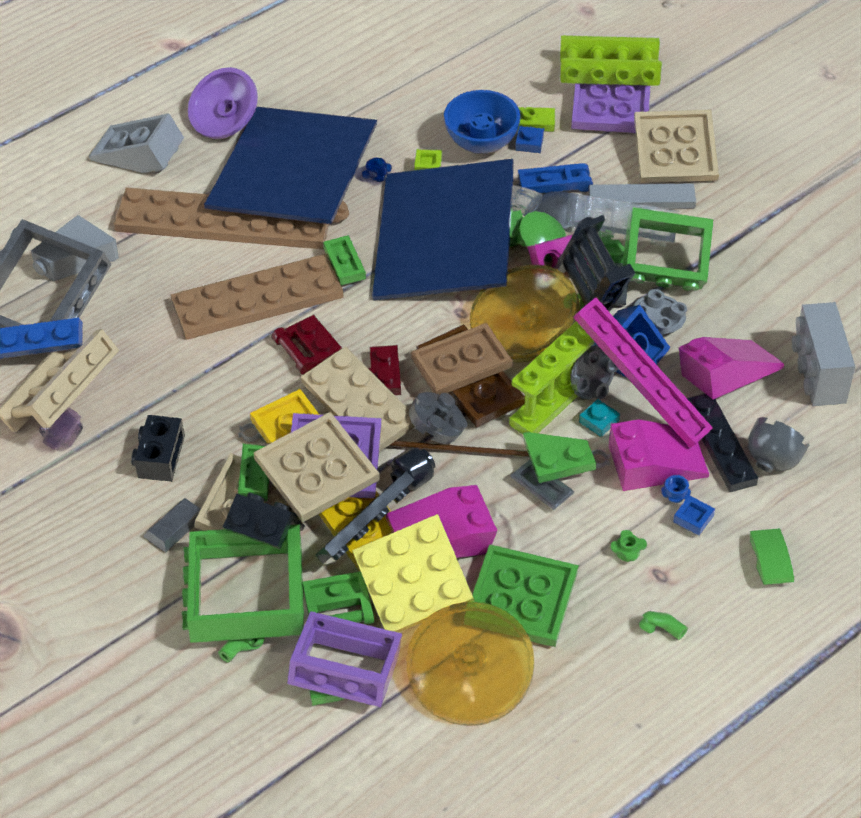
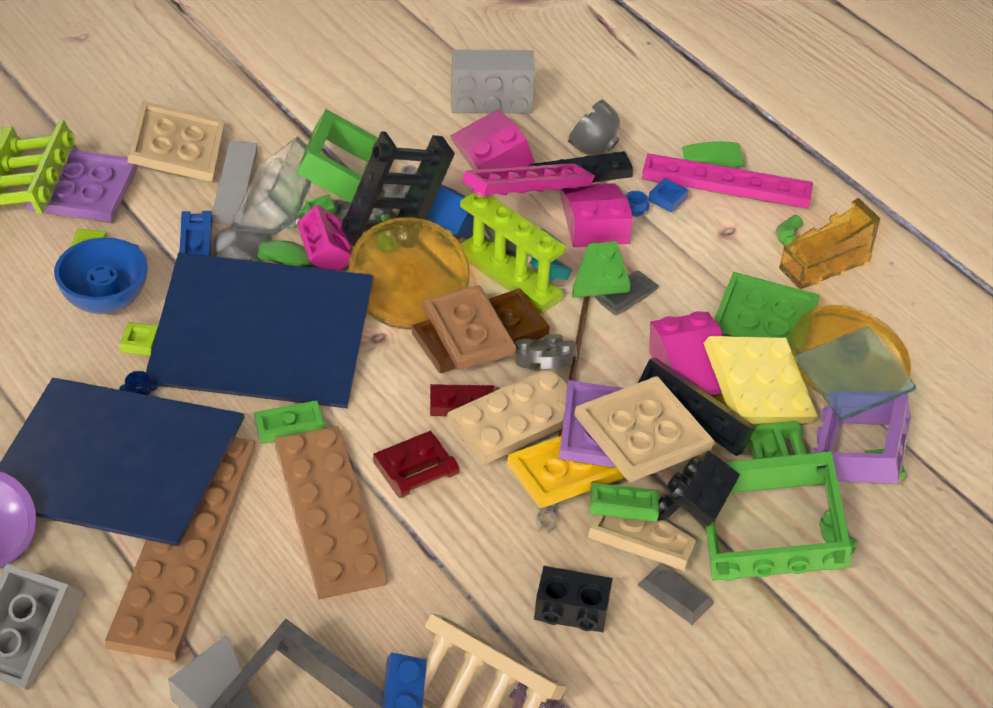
camera: 90 degrees left, 5 degrees down
(416, 644) = (855, 373): none -> clear light blue piece
(417, 463) = (613, 372): black head -> none
(562, 419) = (557, 269): none -> teal plate
(625, 552) = (702, 242): bright green plate -> none
(626, 652) = (833, 248): none -> clear yellow wedge
(731, 570) = (728, 180): none -> dark pink plate

